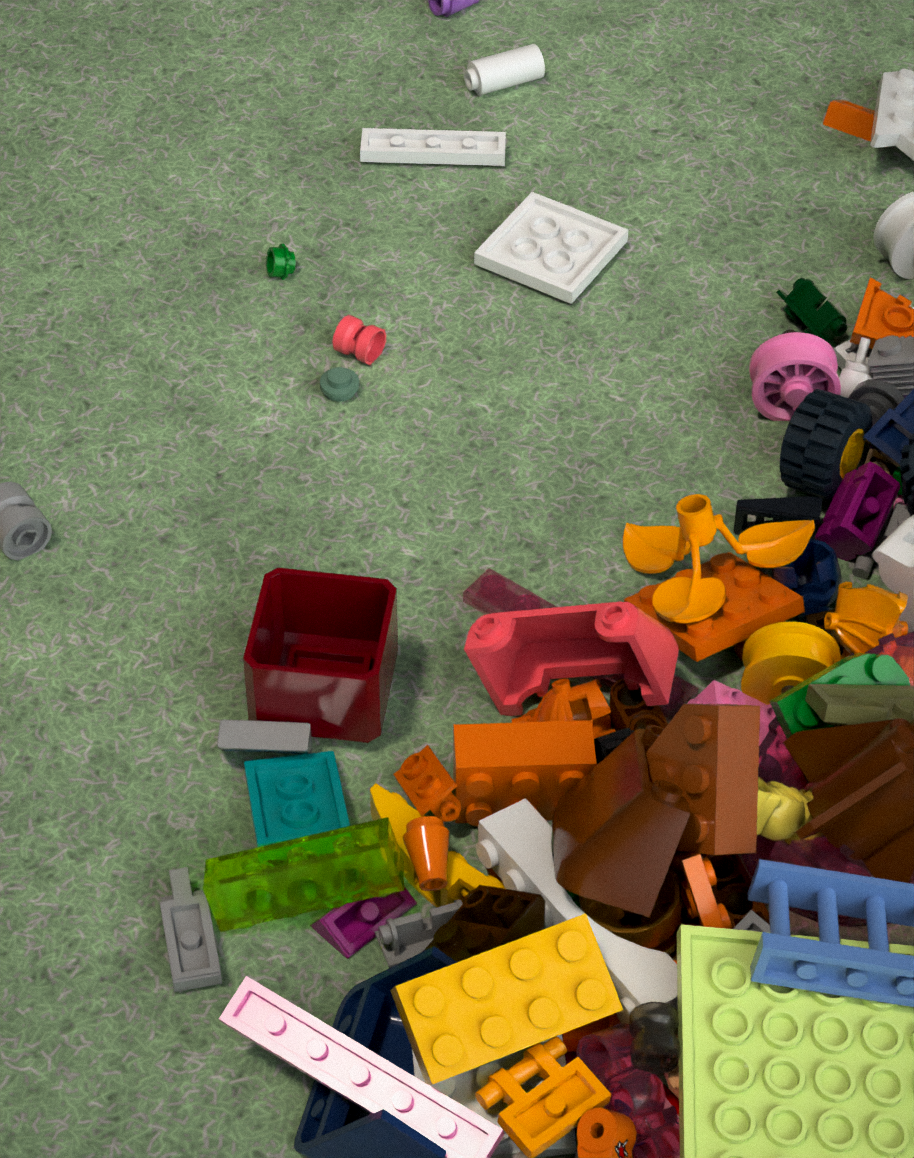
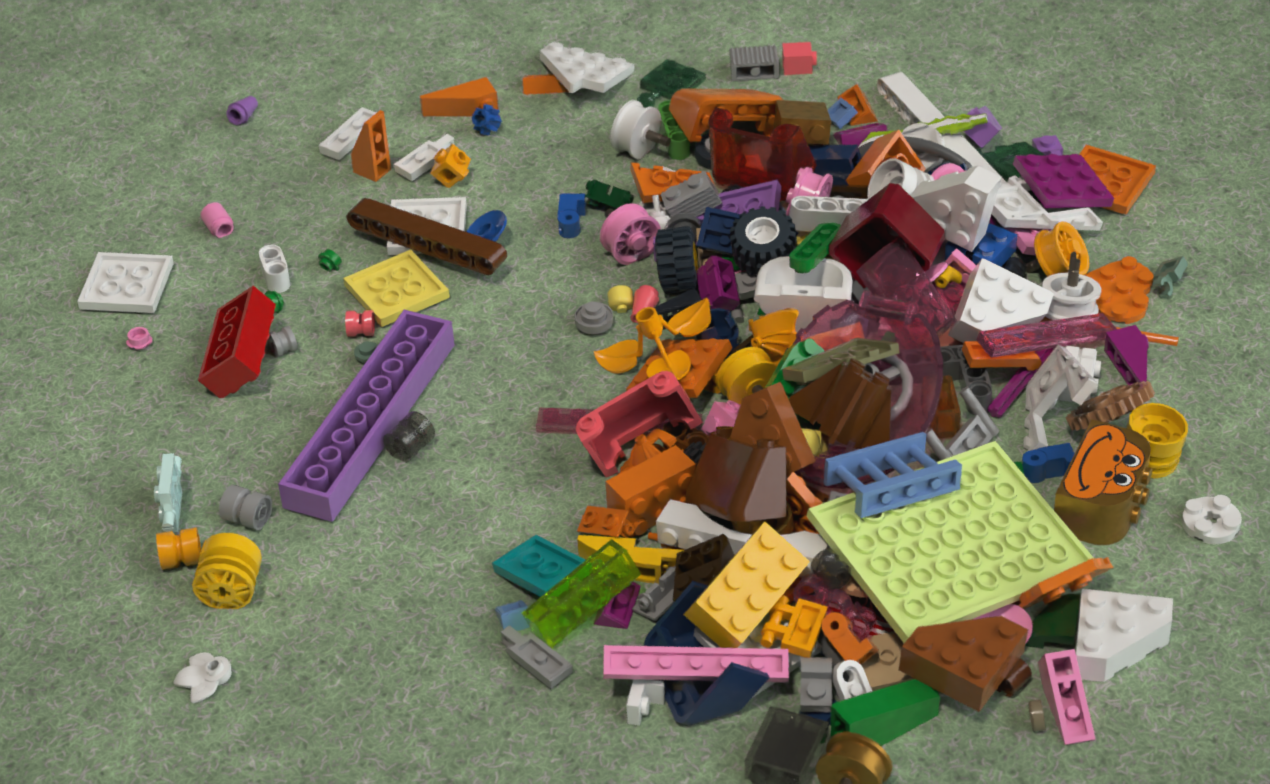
camera: 30 degrees left, 5 degrees down
(90, 235) = (138, 338): none -> bright pink plate
(136, 157) = (125, 282): none -> white plate
(182, 295) = (237, 342): none -> red brick
(210, 845) = (511, 615): none -> medium blue slope
(246, 319) = (282, 341): none -> light grey wheel
(257, 469) = (367, 410): none -> medium lavender brick
(262, 1083) = (641, 695): none -> white bracket
(264, 736) = (494, 545): light grey slope -> none
(281, 527) = (409, 436): none -> clear smoke wheel
(305, 125) = (217, 220): none -> bright pink brick
(317, 218) = (274, 268): none -> white beam
(322, 652) = (499, 485): dark red plate -> none
(394, 238) = (329, 260): none -> green plate
(428, 849) = (639, 549): orange cone -> none
(433, 146) = (306, 200): white plate -> none
(445, 313) = (396, 286): none -> light yellow plate
(504, 69) = (308, 141): white brick -> none
(529, 262) = (427, 236): none -> reddish brown beam
(552, 112) = (371, 151): none -> orange slope
(557, 83) = (345, 137): none -> white plate
(616, 287) = (489, 225): none -> blue dish
(624, 154) = (422, 158): none -> white hinge
(641, 179) = (450, 165): none -> light orange brick
(662, 475) = (594, 318): none -> light grey plate
(720, 465) = (620, 298): none -> light yellow piece
(731, 98) = (459, 99): none -> orange slope
(739, 137) = (486, 119): none -> blue gear
(746, 312) = (569, 210): none -> blue leg
(748, 482) = (644, 297): none -> coral cone

